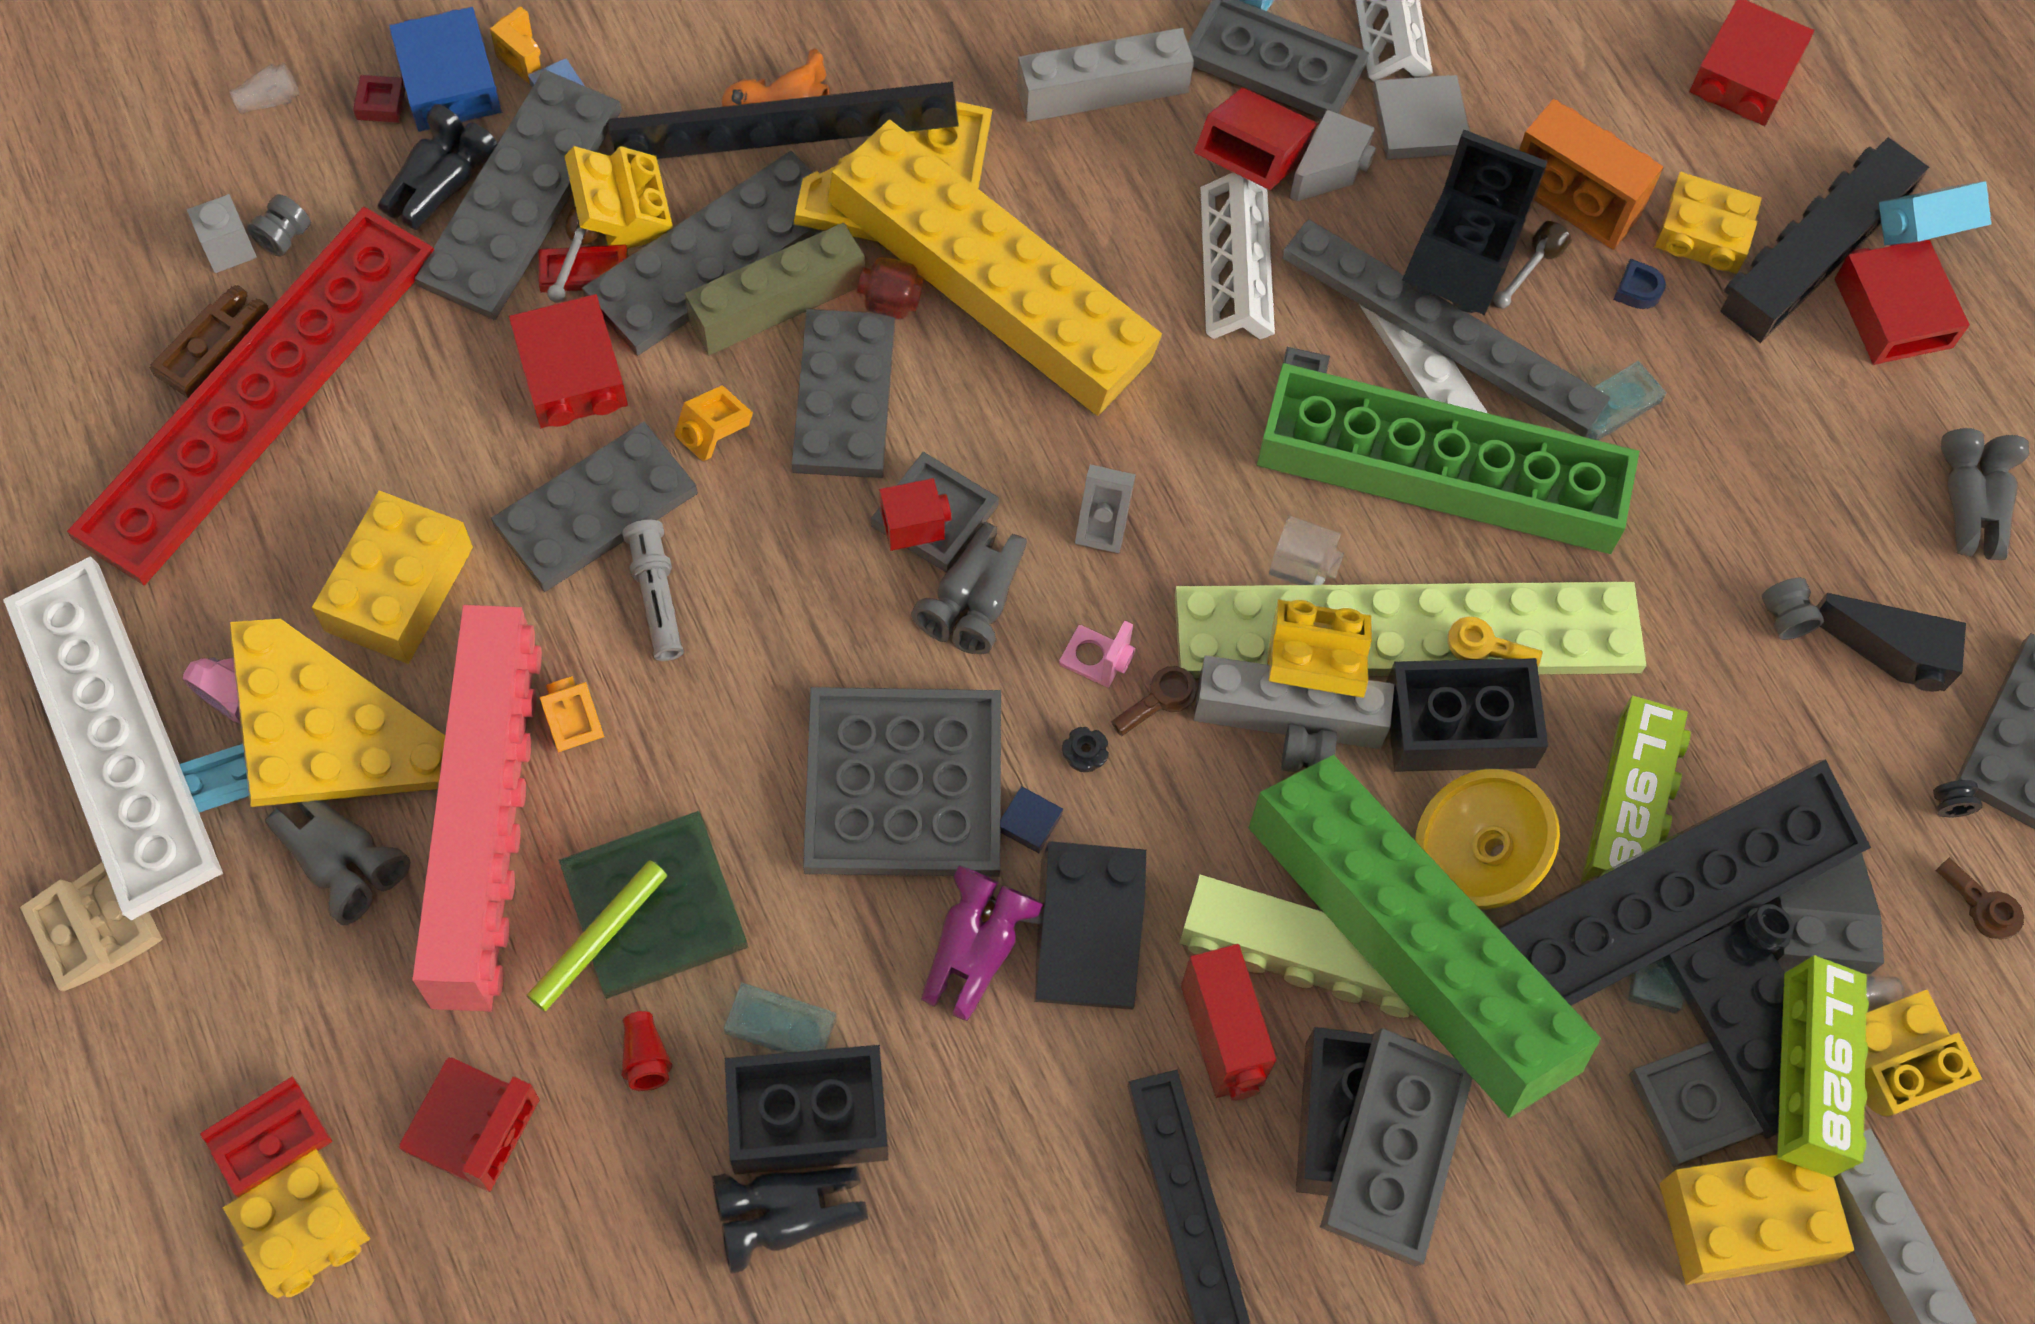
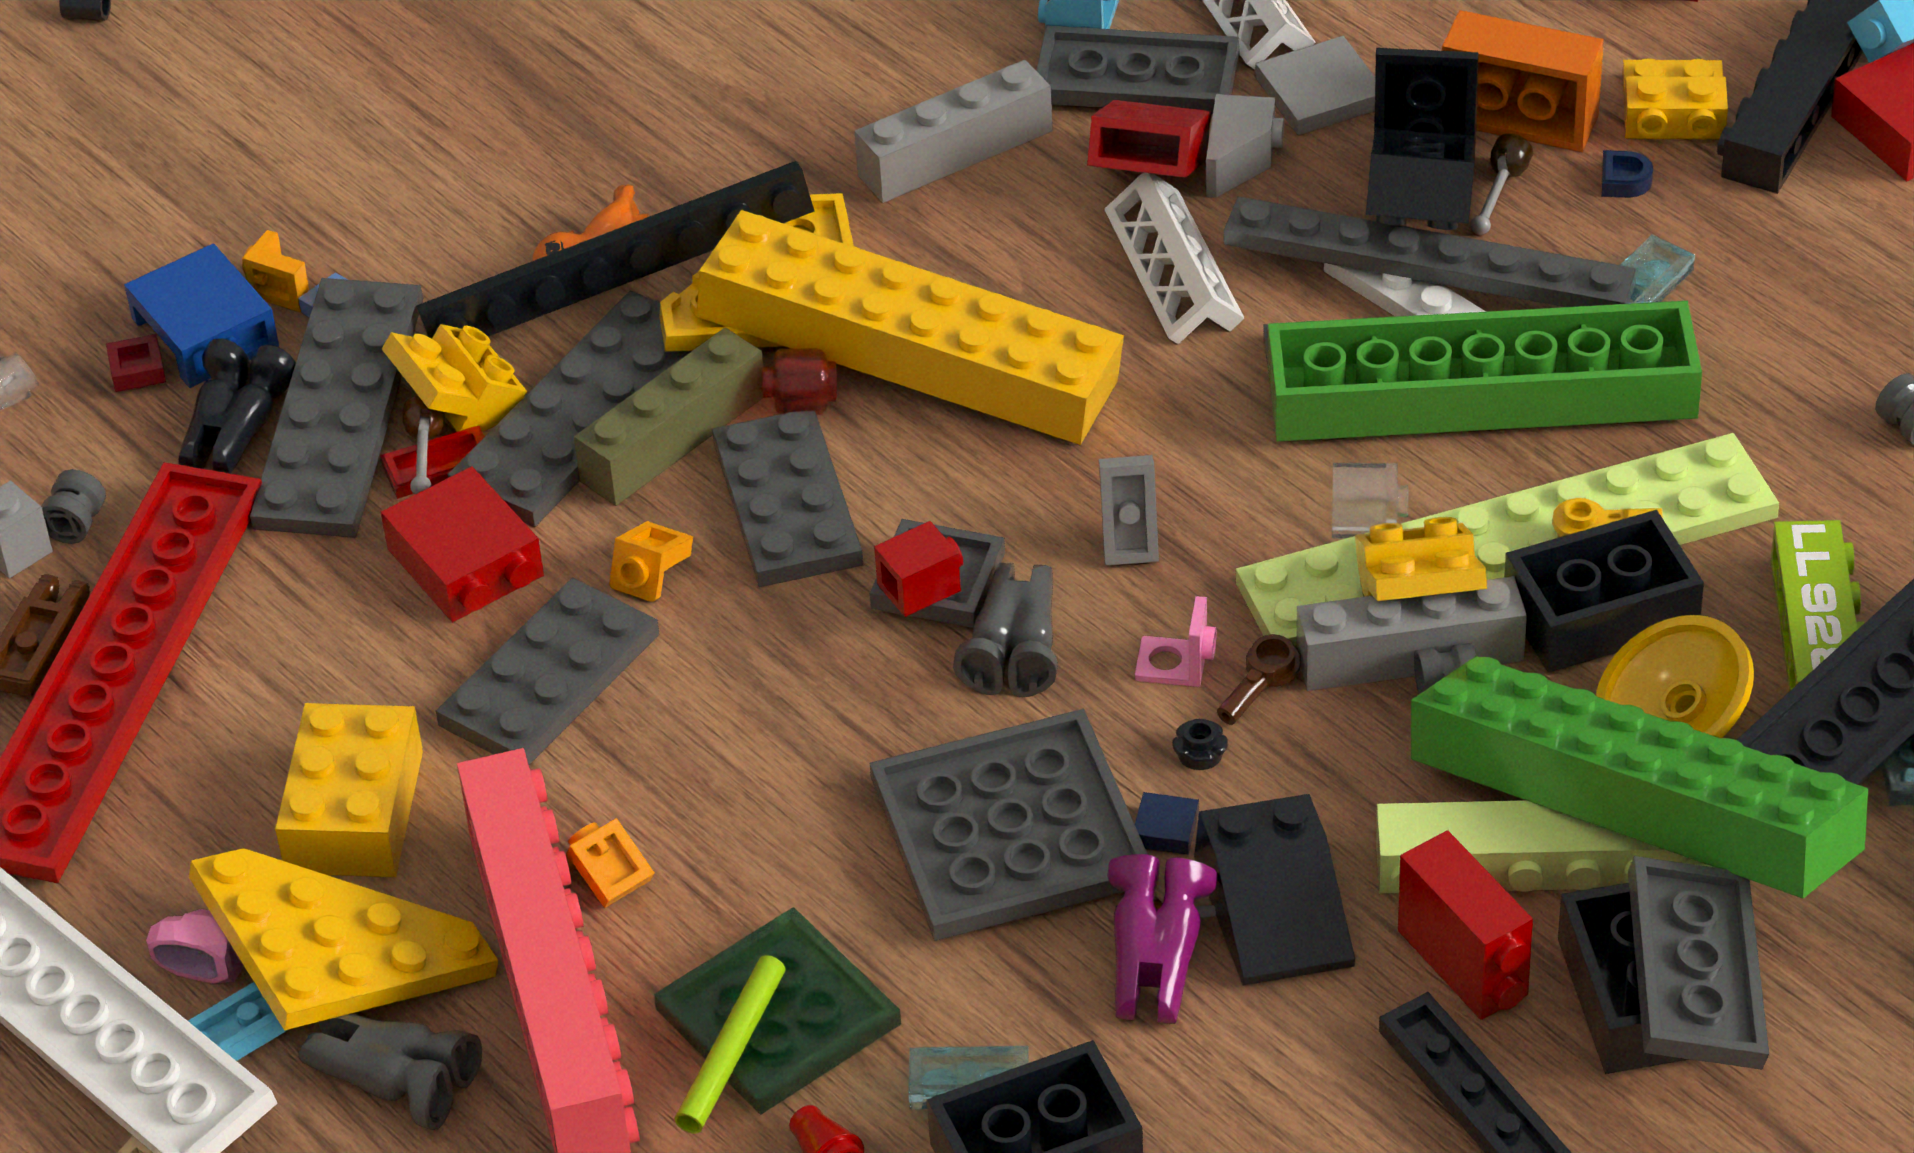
camera: 10 degrees left, 20 degrees down
(651, 570) = (626, 697): light grey pin -> none

